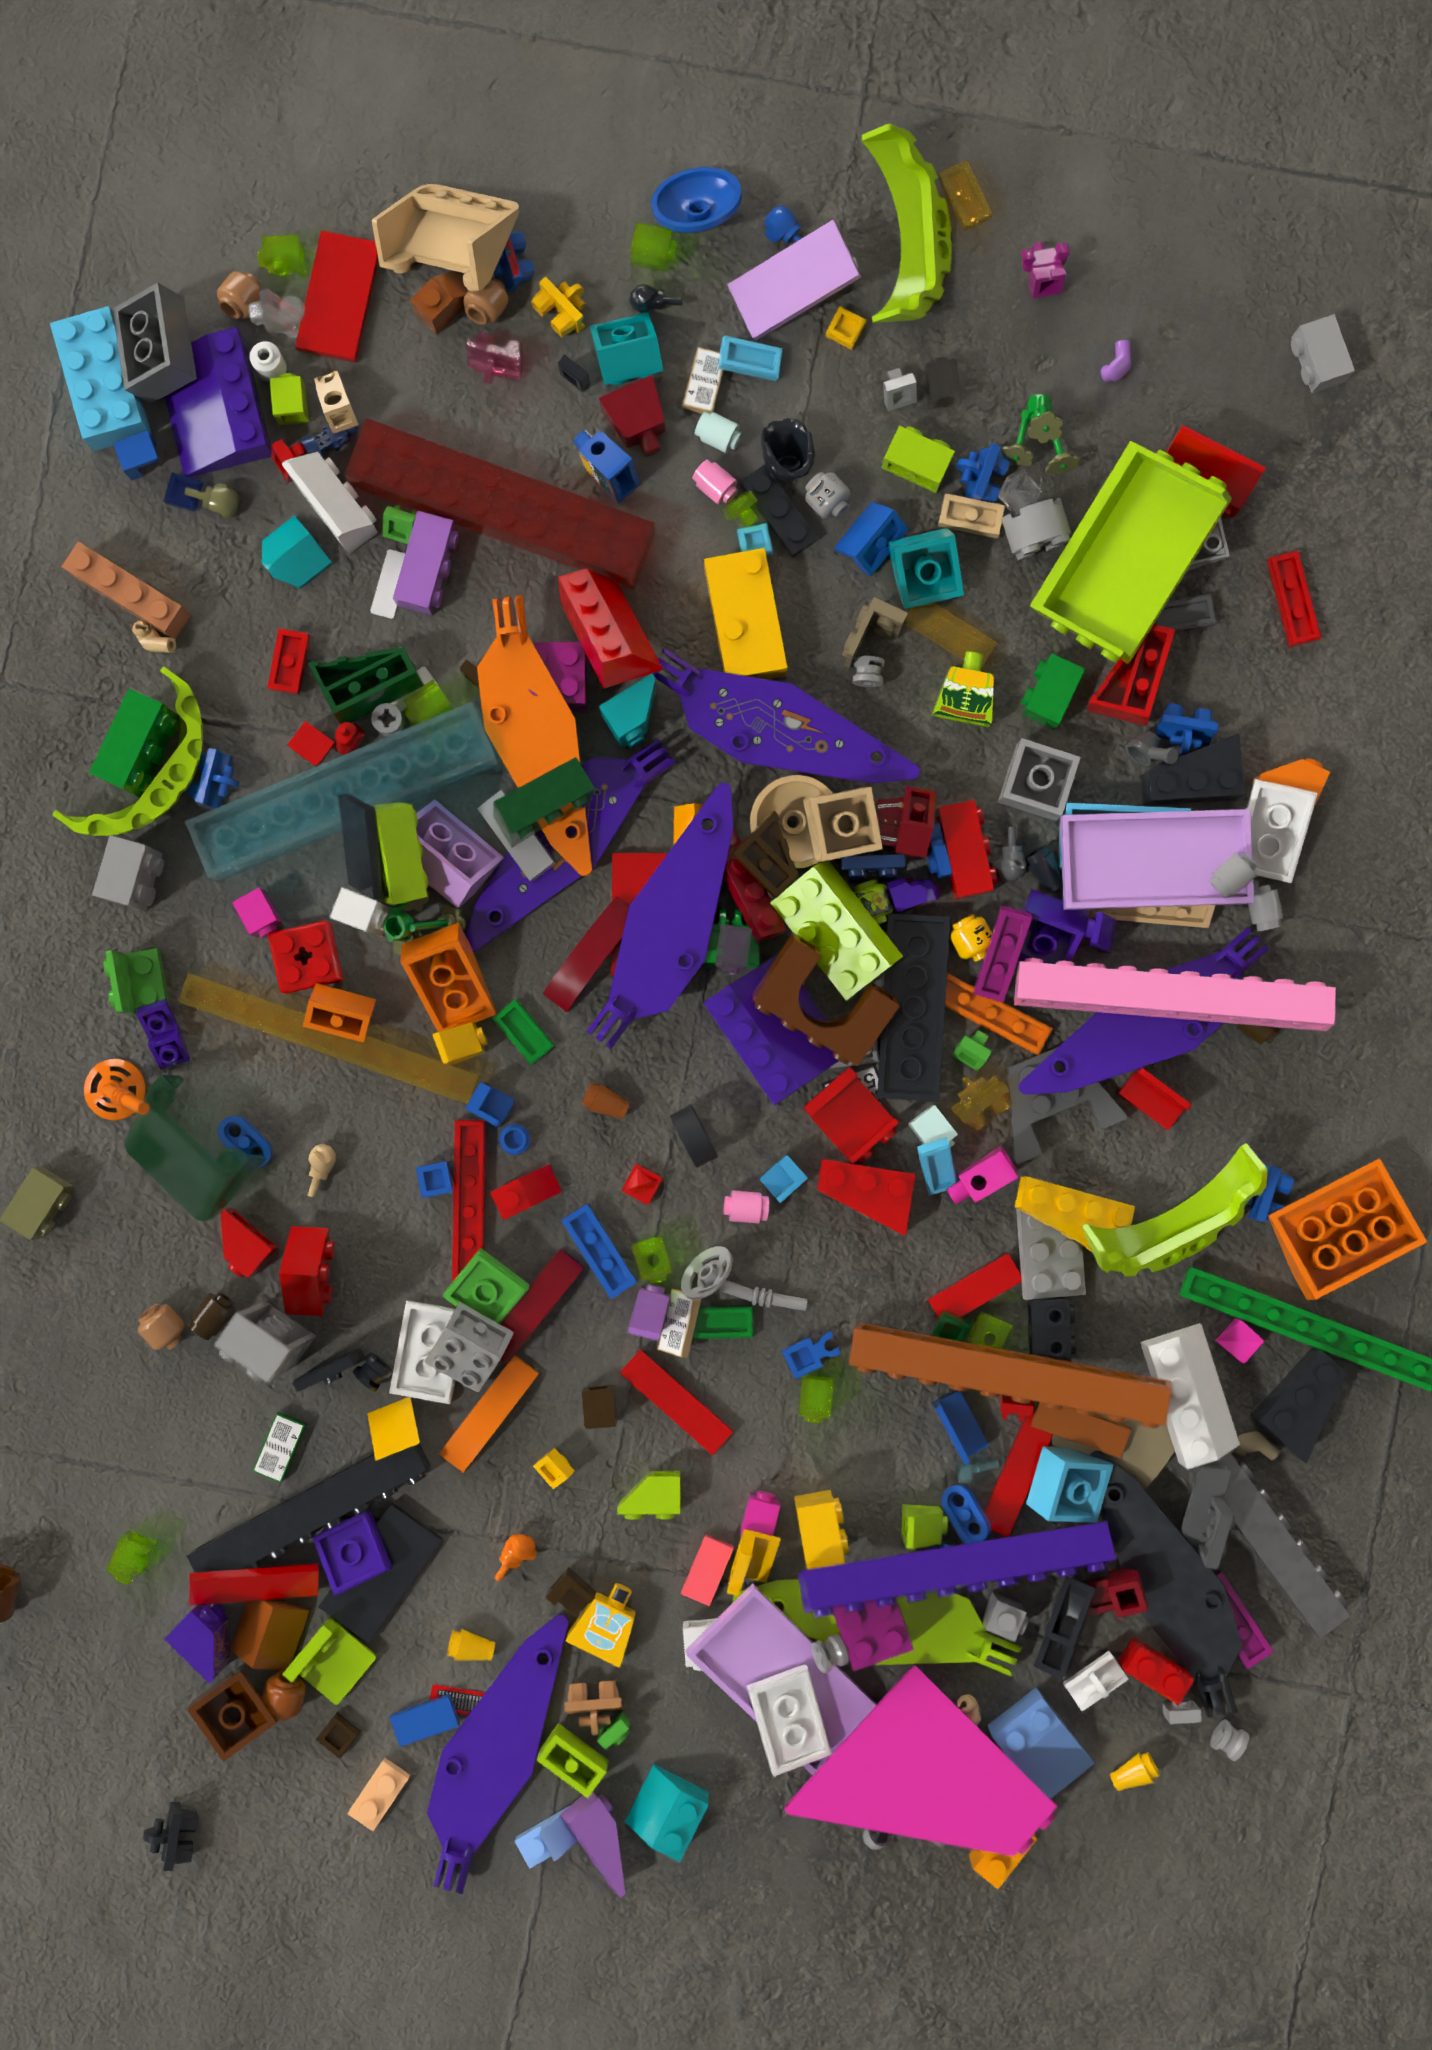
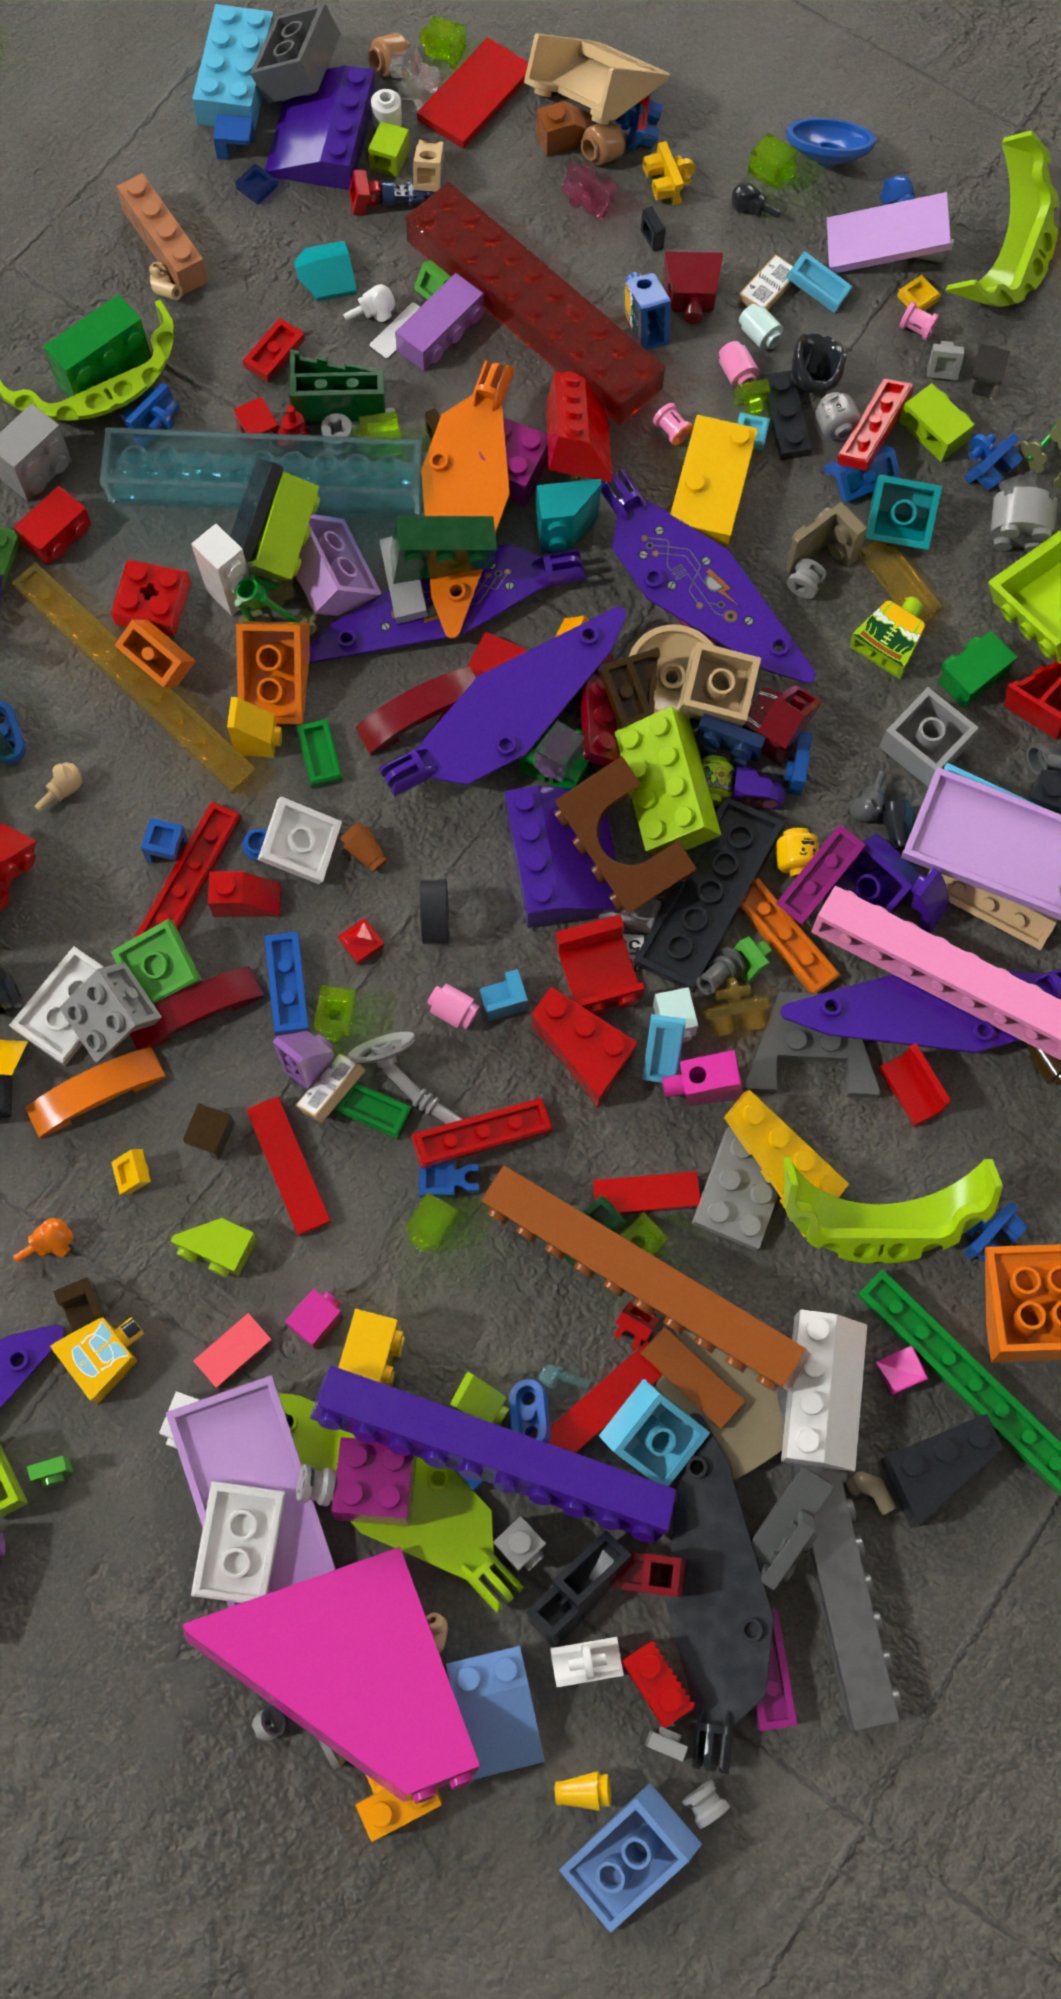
camera: 20 degrees right, 15 degrees down
(184, 930) = (53, 525): none -> red brick
(220, 499) = (284, 199): olive piece -> none
(258, 913) = (128, 539): dark pink brick -> none
(332, 499) = (383, 236): white slope -> none
(356, 570) = (376, 303): none -> white piece
(490, 1104) = (251, 800): blue panel -> none
(549, 1123) = (300, 840): none -> white plate
(579, 1703) = (42, 1437): medium nougat hips -> none
(626, 349) = (709, 230): teal slope -> none
(667, 1812) = (60, 1587): teal slope -> none
(683, 570) = (673, 423): none -> bright pink bush
(752, 1559) = (284, 1354): yellow panel -> none
(821, 1304) = (481, 1133): none -> red tile
(858, 358) = (919, 321): none -> bright pink bush
(865, 489) = (875, 424): none -> tile
(954, 1071) = (726, 965): none -> dark grey pin
(960, 1425) = (567, 1323): blue panel -> none
(966, 849) = (828, 772): red brick -> none
(971, 515) = (966, 490): tan plate -> none
(1050, 1328) = (710, 1257): black brick -> none
(1191, 1802) = (630, 1857): none -> medium blue slope

